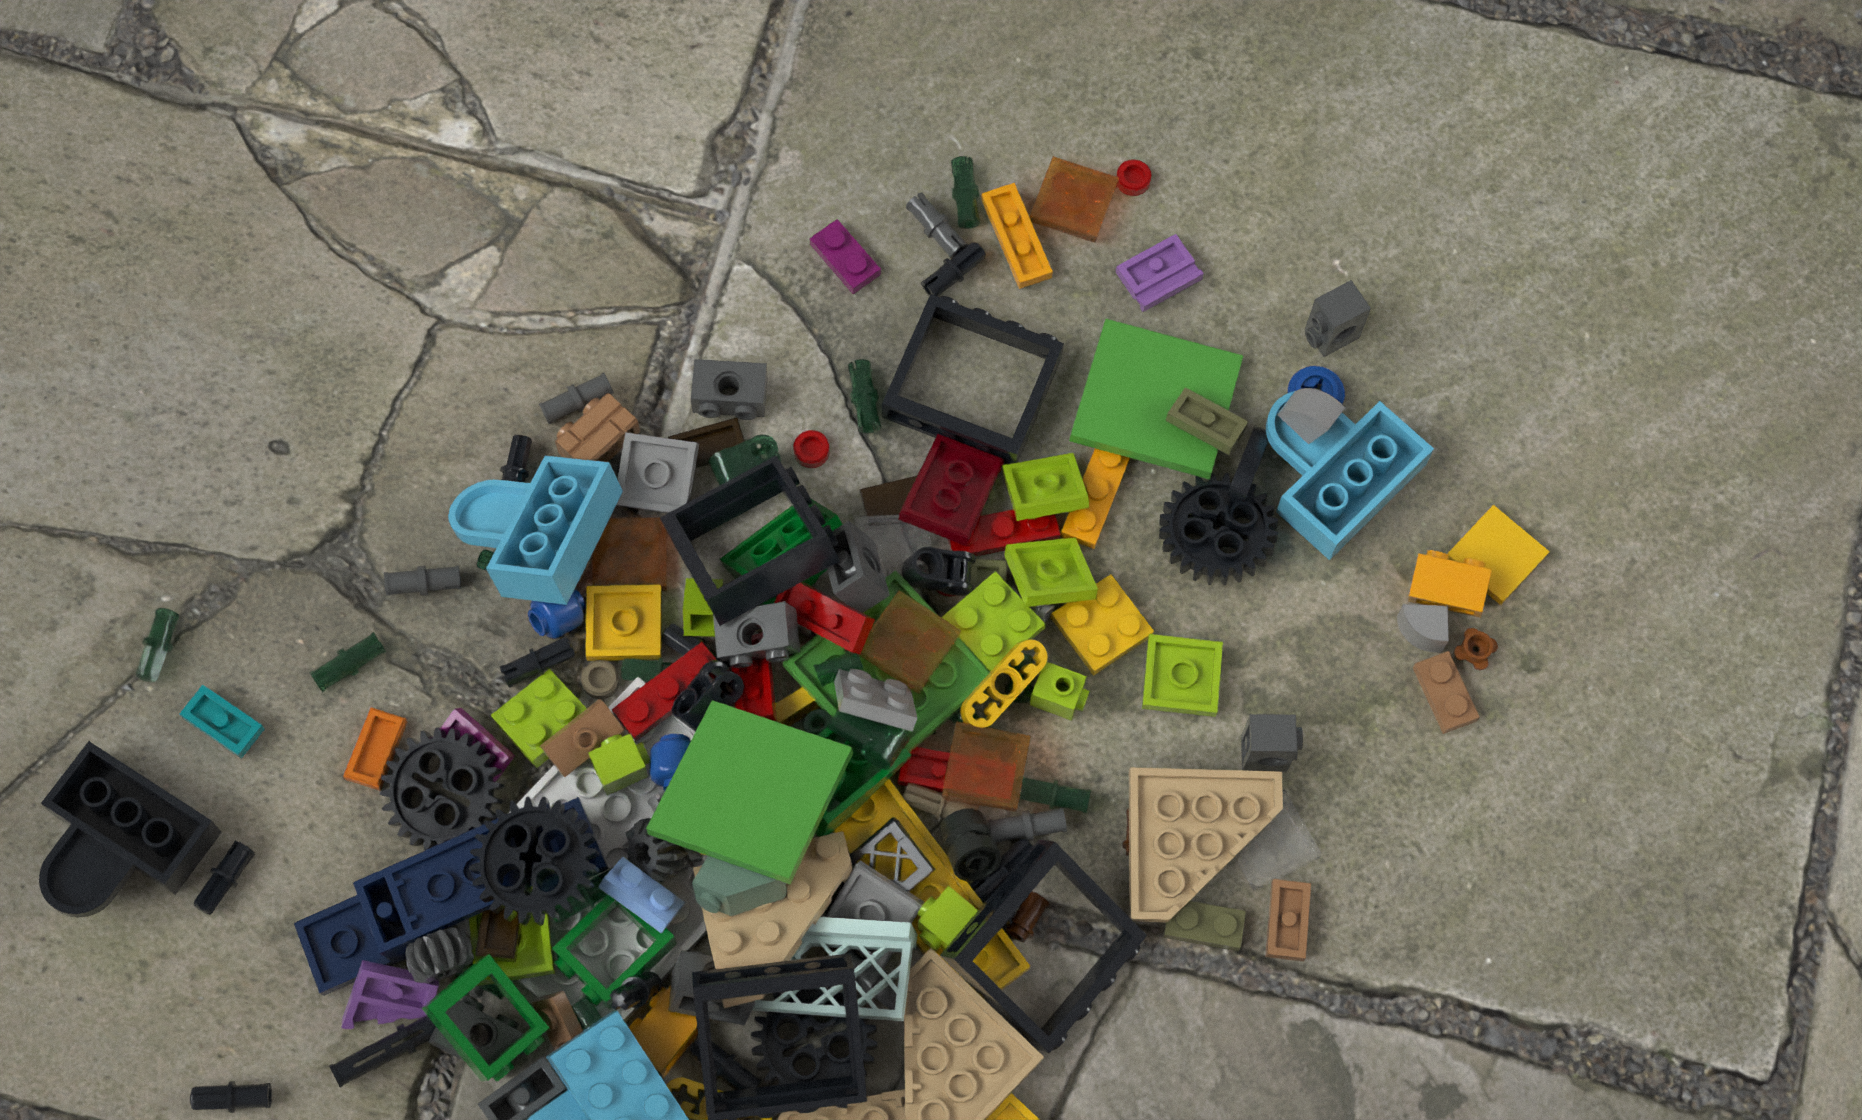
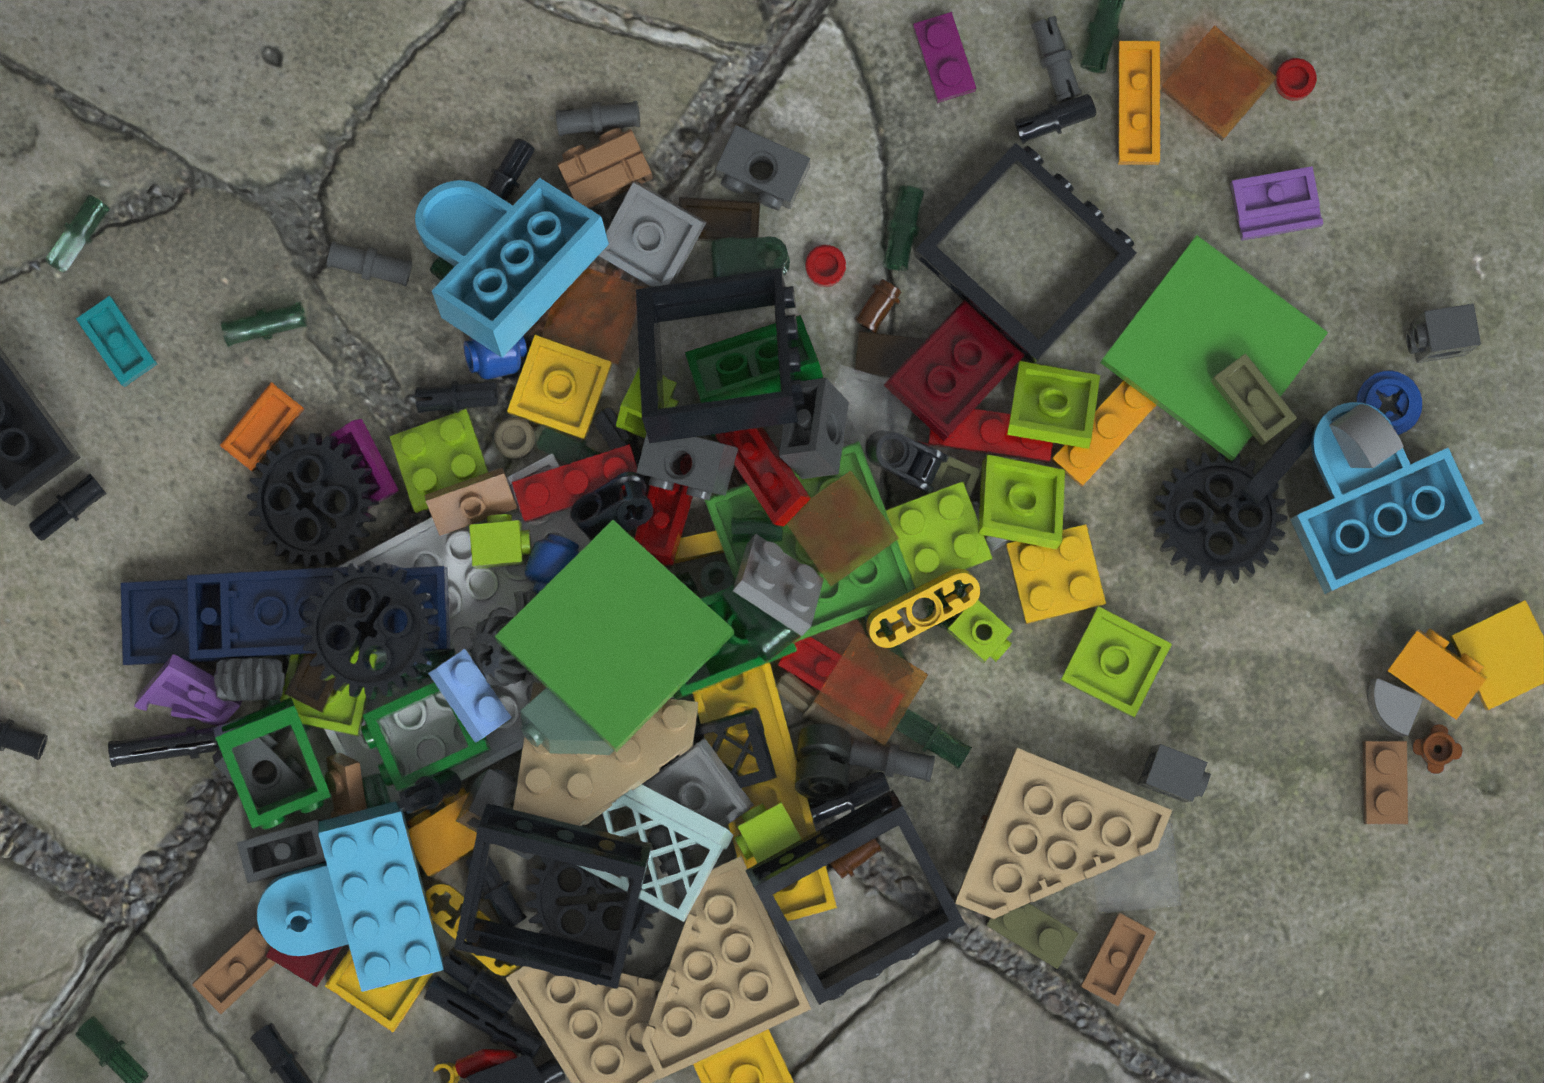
camera: 30 degrees right, 15 degrees up
(868, 461) = (878, 305): none -> reddish brown pin

